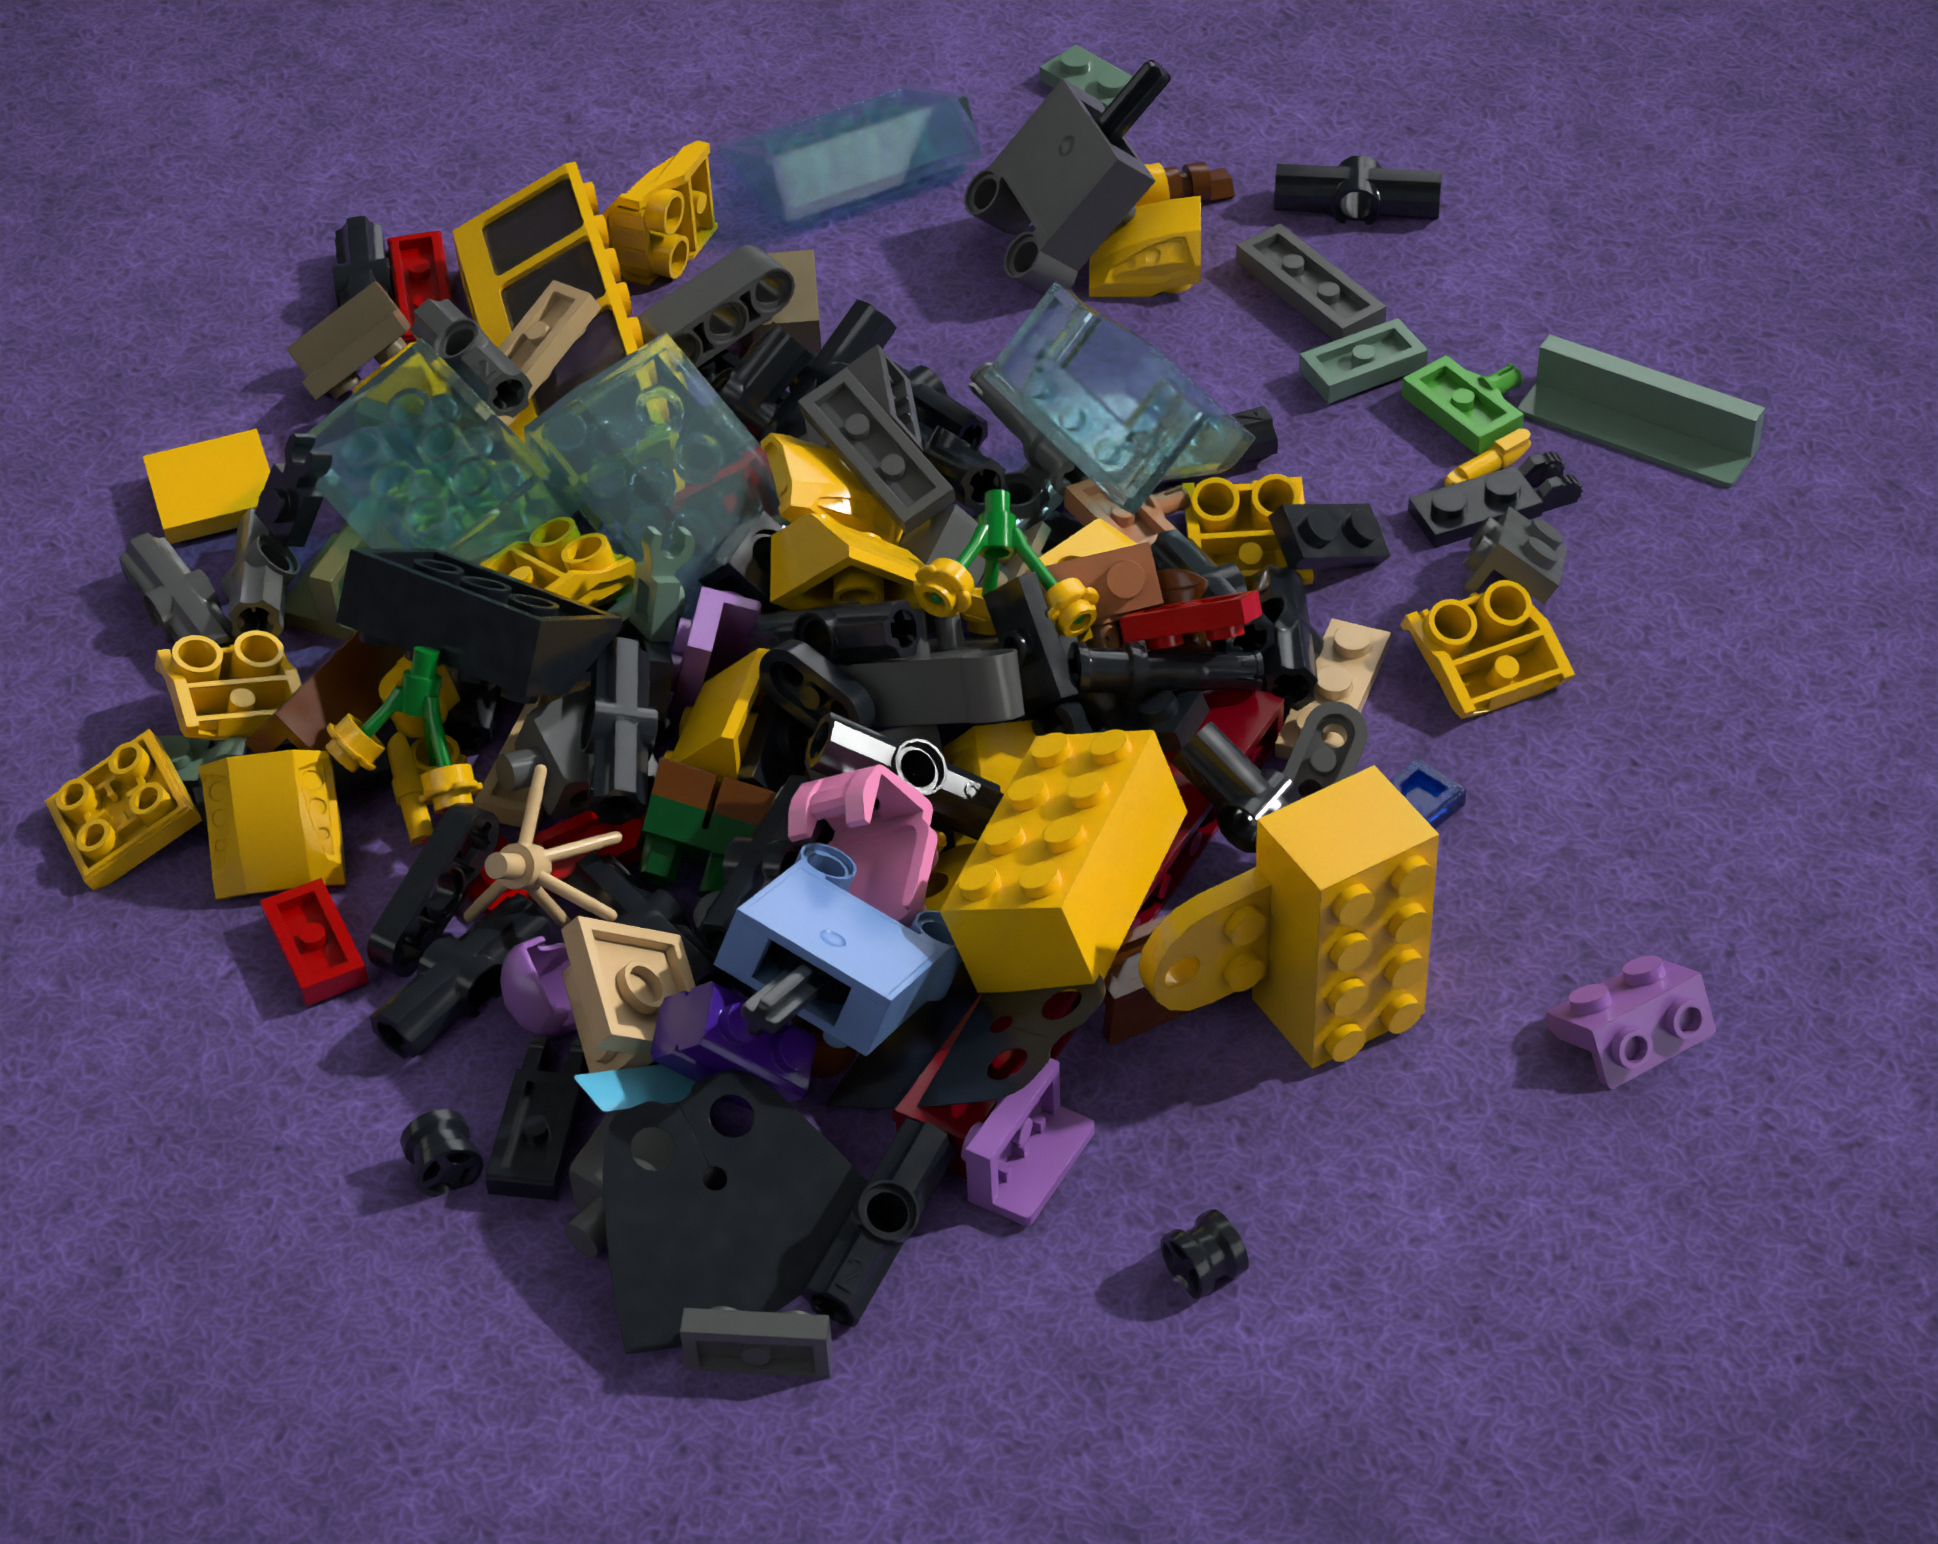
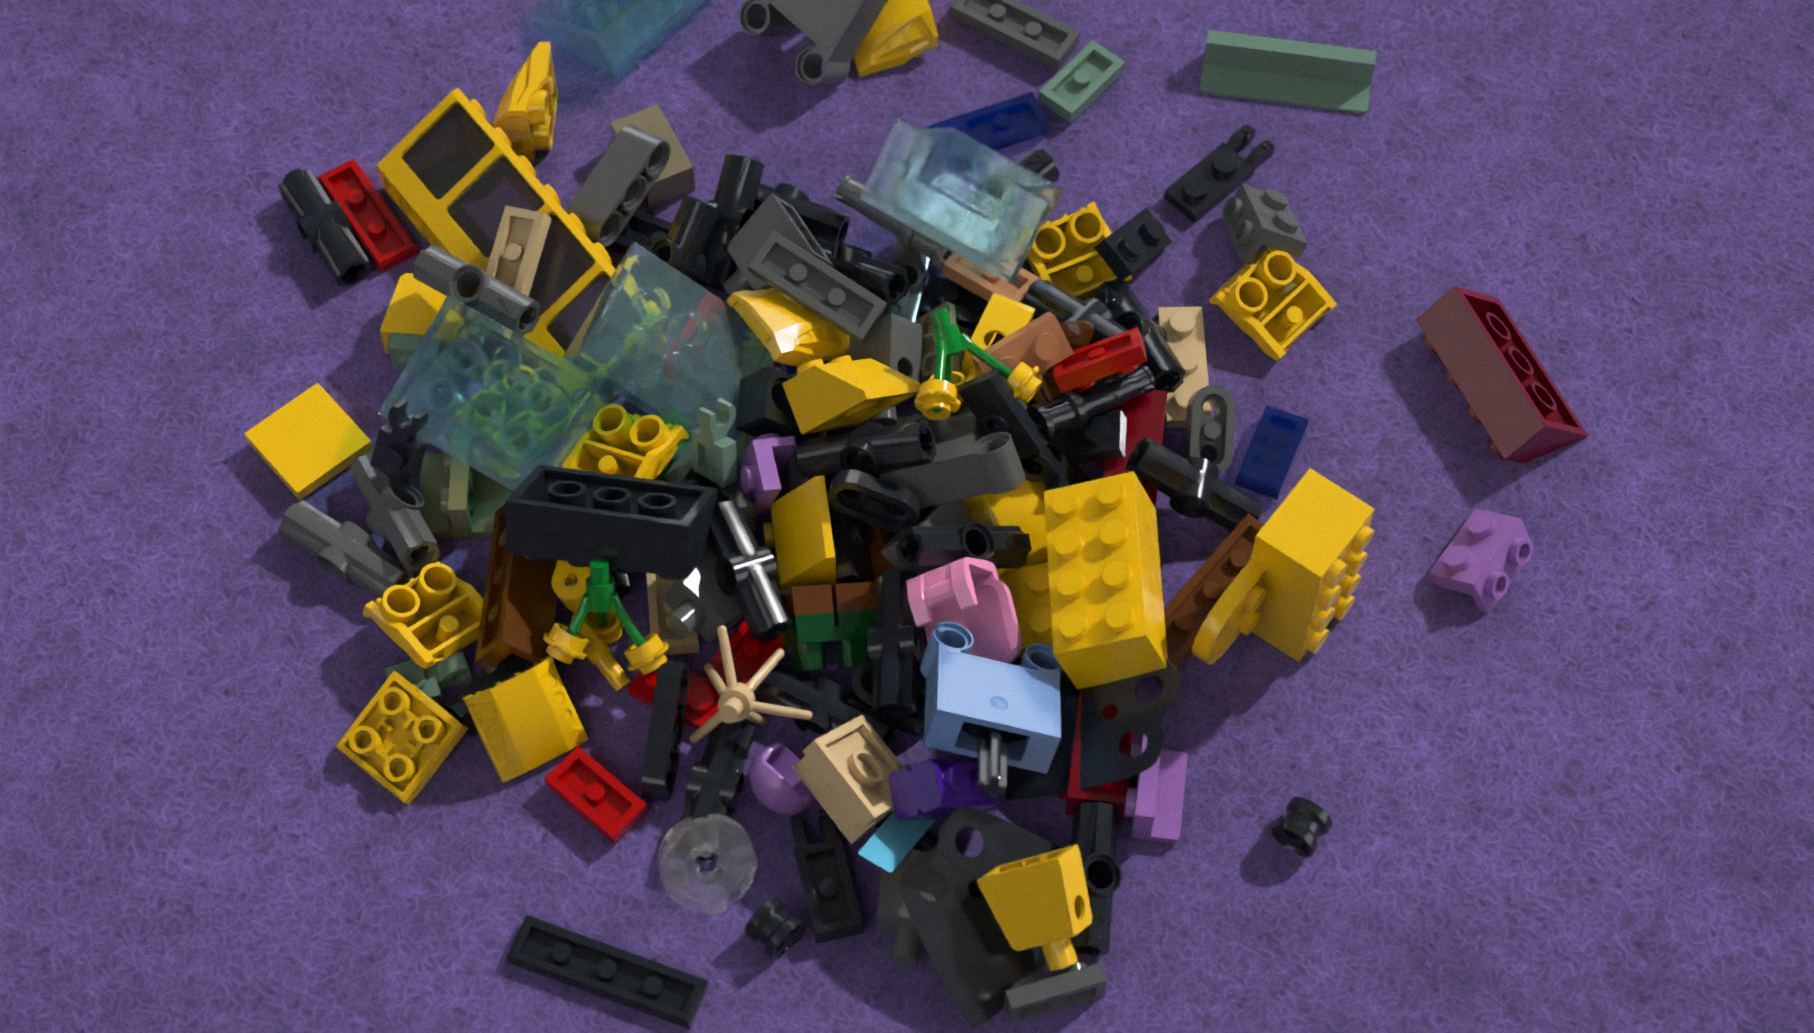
camera: 25 degrees left, 15 degrees up
(213, 1142) = (607, 971): none -> black tile
(347, 339) = (354, 289): dark tan bracket -> none
(355, 1041) = (713, 889): none -> clear plate
(782, 1211) = (1041, 903): none -> yellow torso
(1241, 378) = (1002, 123): none -> clear blue plate
(1466, 402) = (1167, 97): bright green plate -> none
(1500, 455) = (1203, 137): yellow piece -> none
(1762, 811) = (1498, 376): none -> dark red slope

